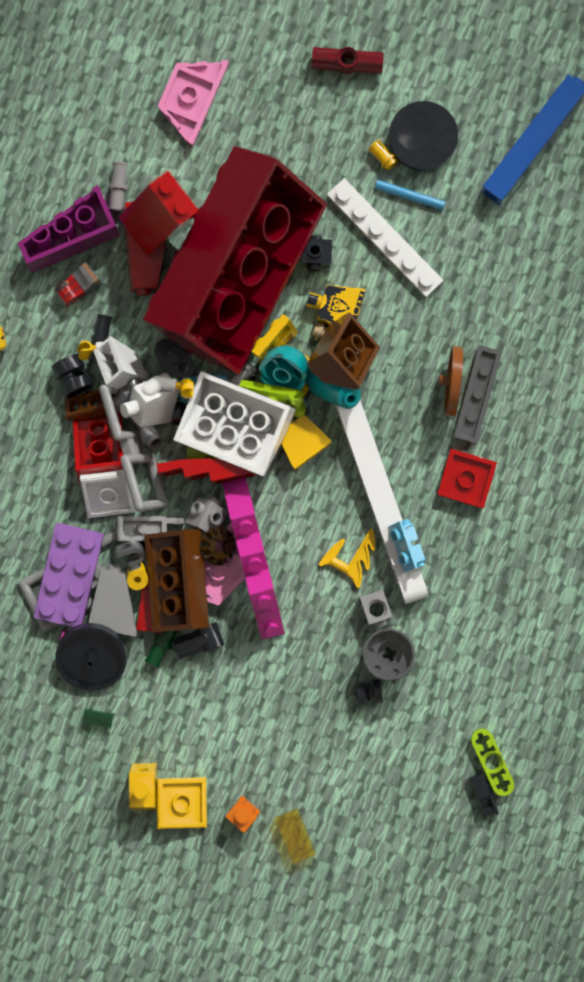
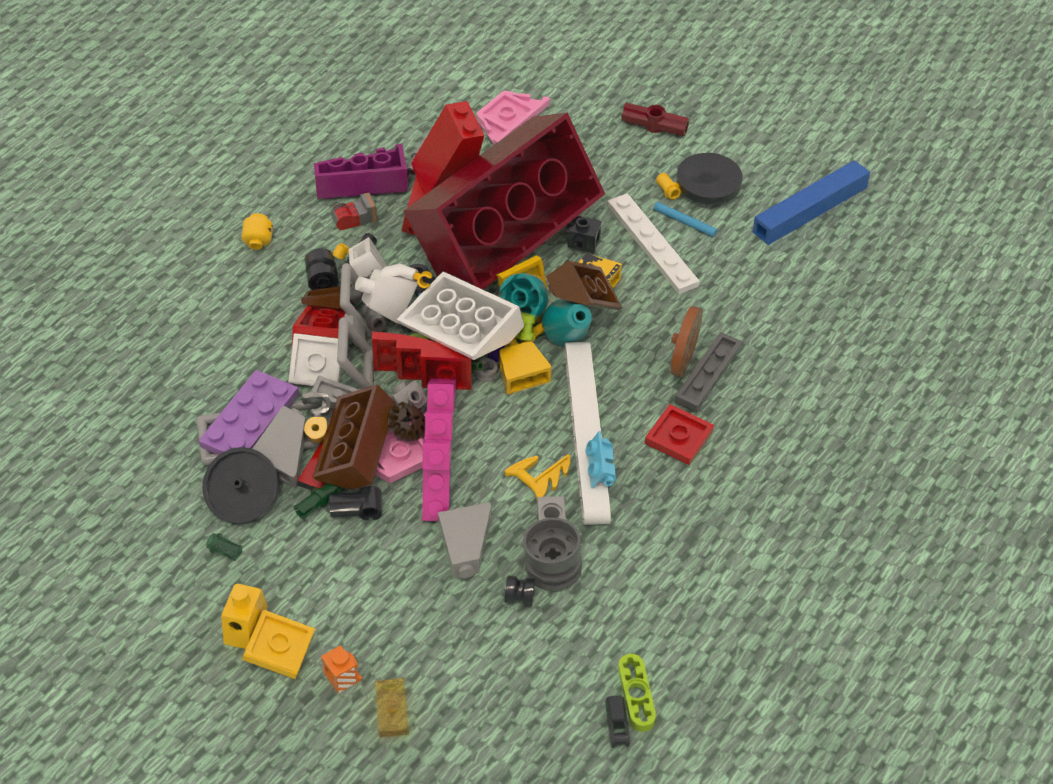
camera: 15 degrees right, 35 degrees down
(306, 652) = (465, 537): none -> light grey slope

